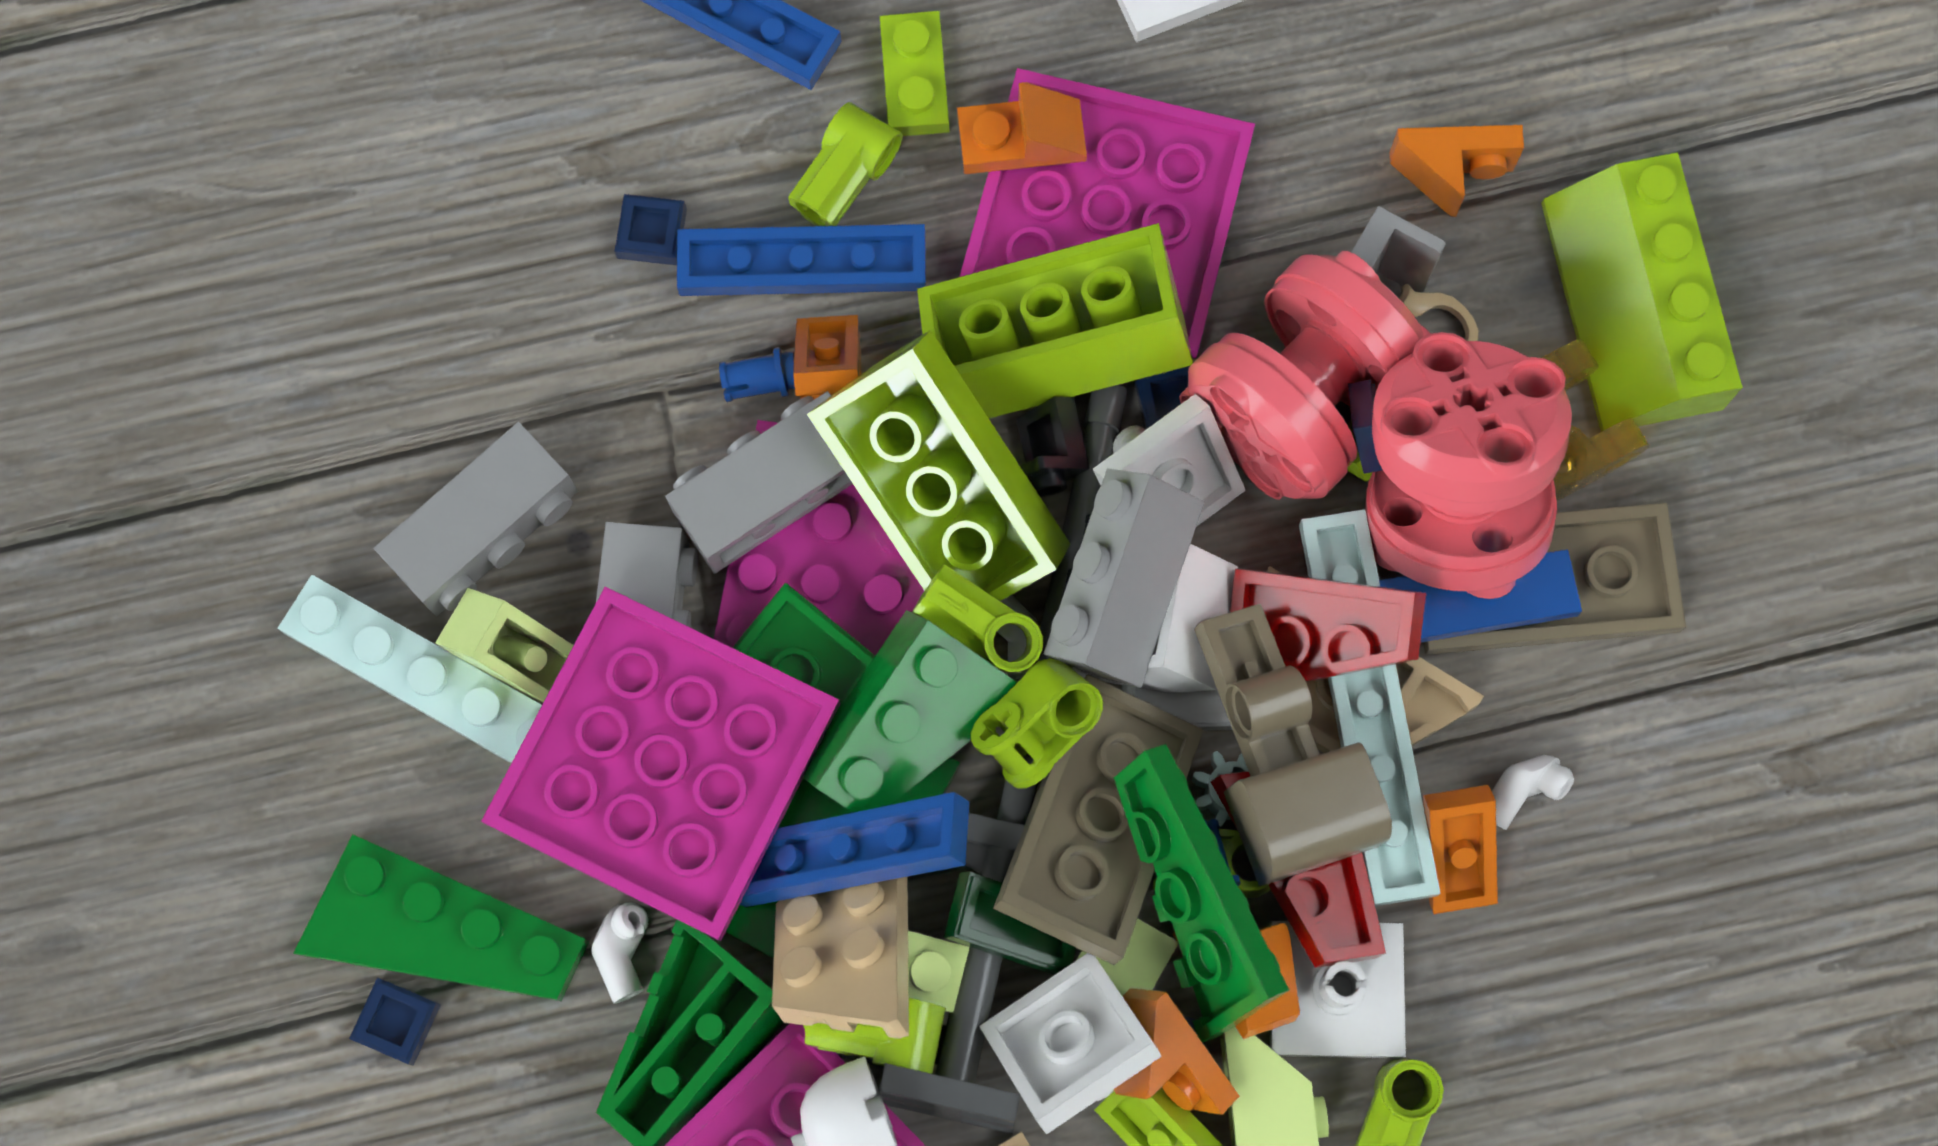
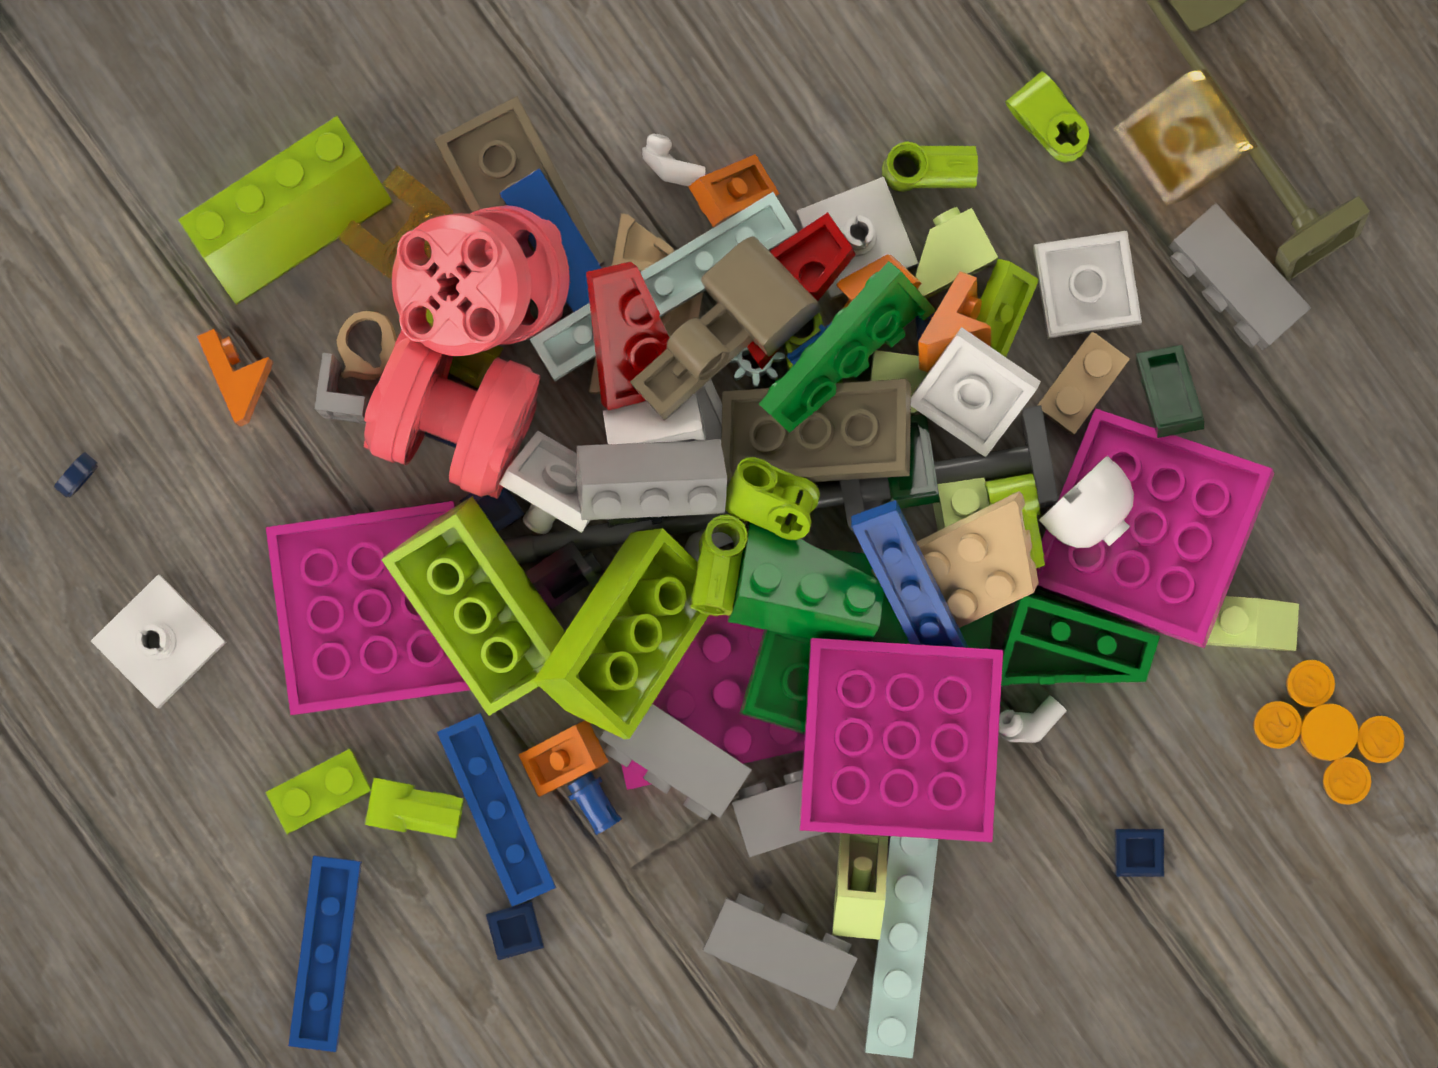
camera: 120 degrees left, 10 degrees up
(423, 924) = (1068, 864): green wing -> none
(1023, 133) = (343, 689): orange slope -> none
(1361, 406) = (462, 365): dark blue tile -> none

